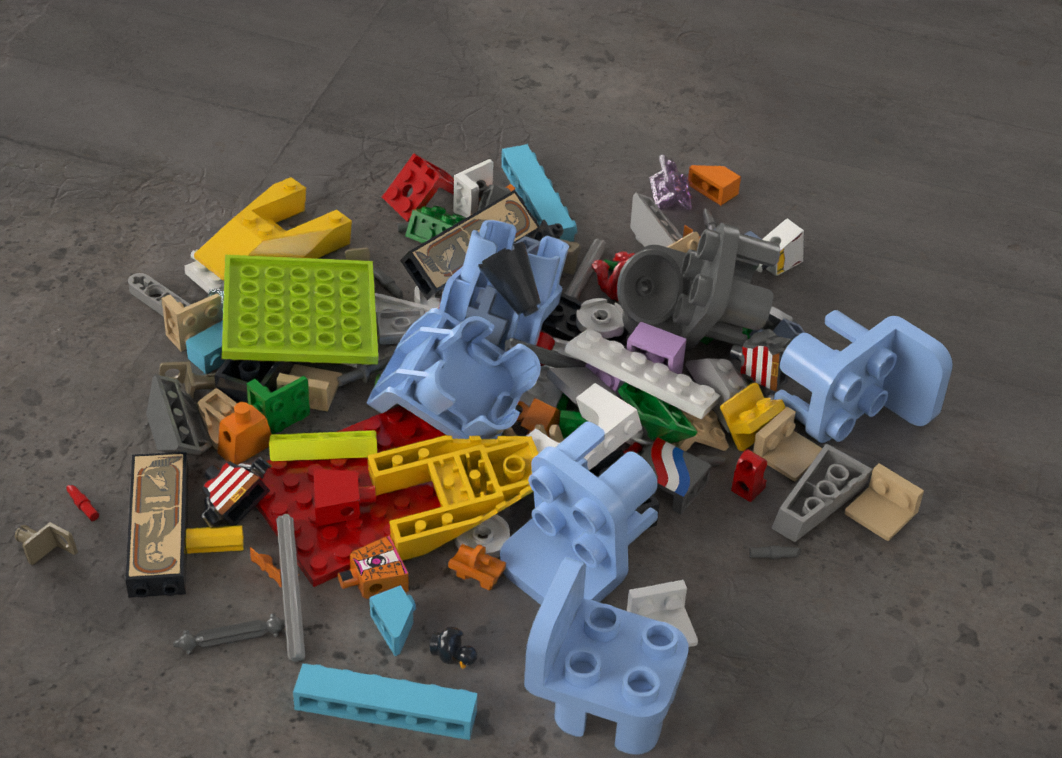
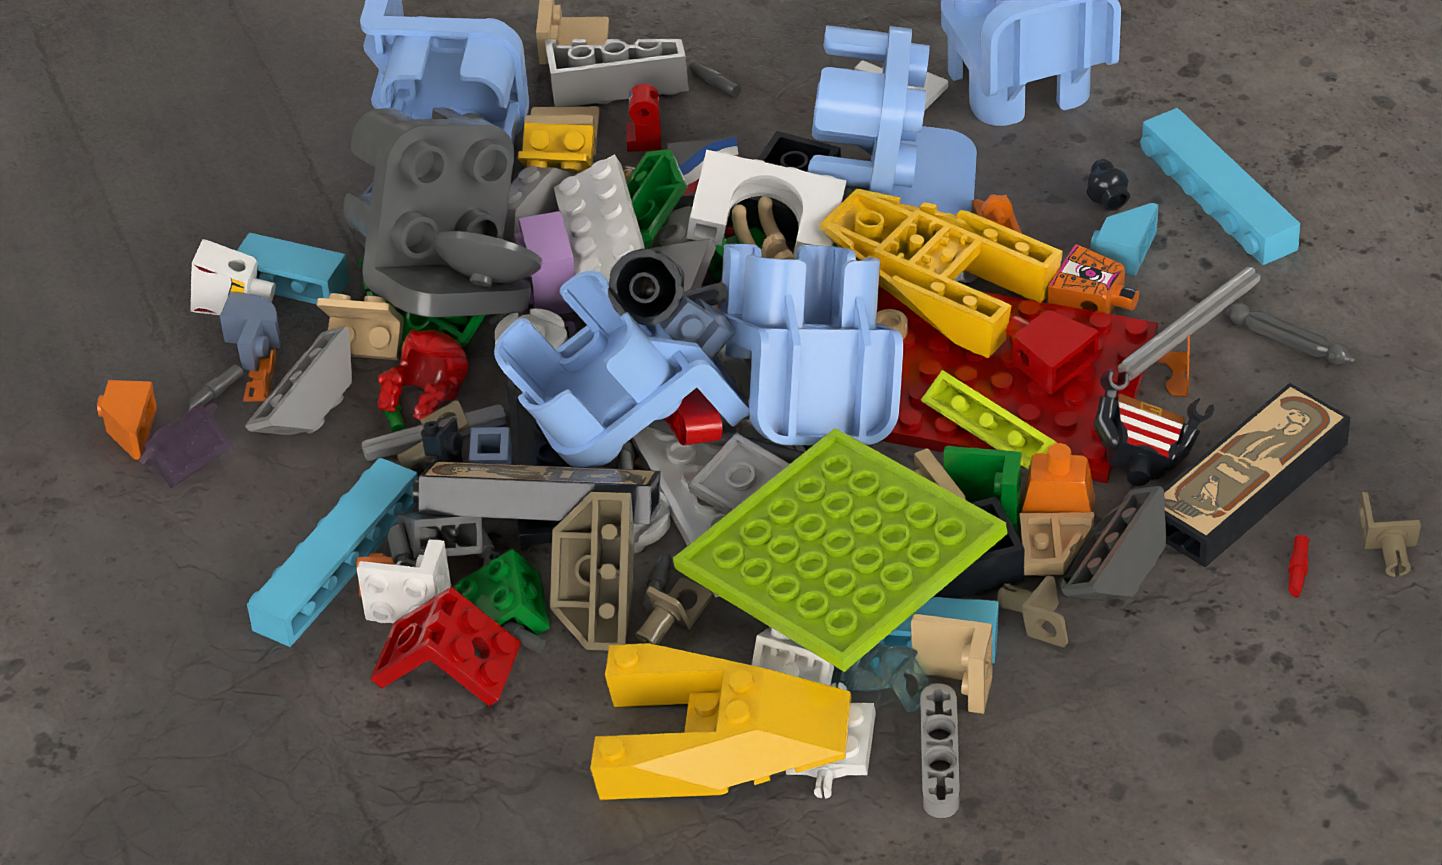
camera: 125 degrees left, 0 degrees up
(214, 539) = (1215, 427): yellow axle -> none
(391, 249) = (595, 570): none -> dark tan wedge
(783, 279) = (297, 269): none -> medium azure brick

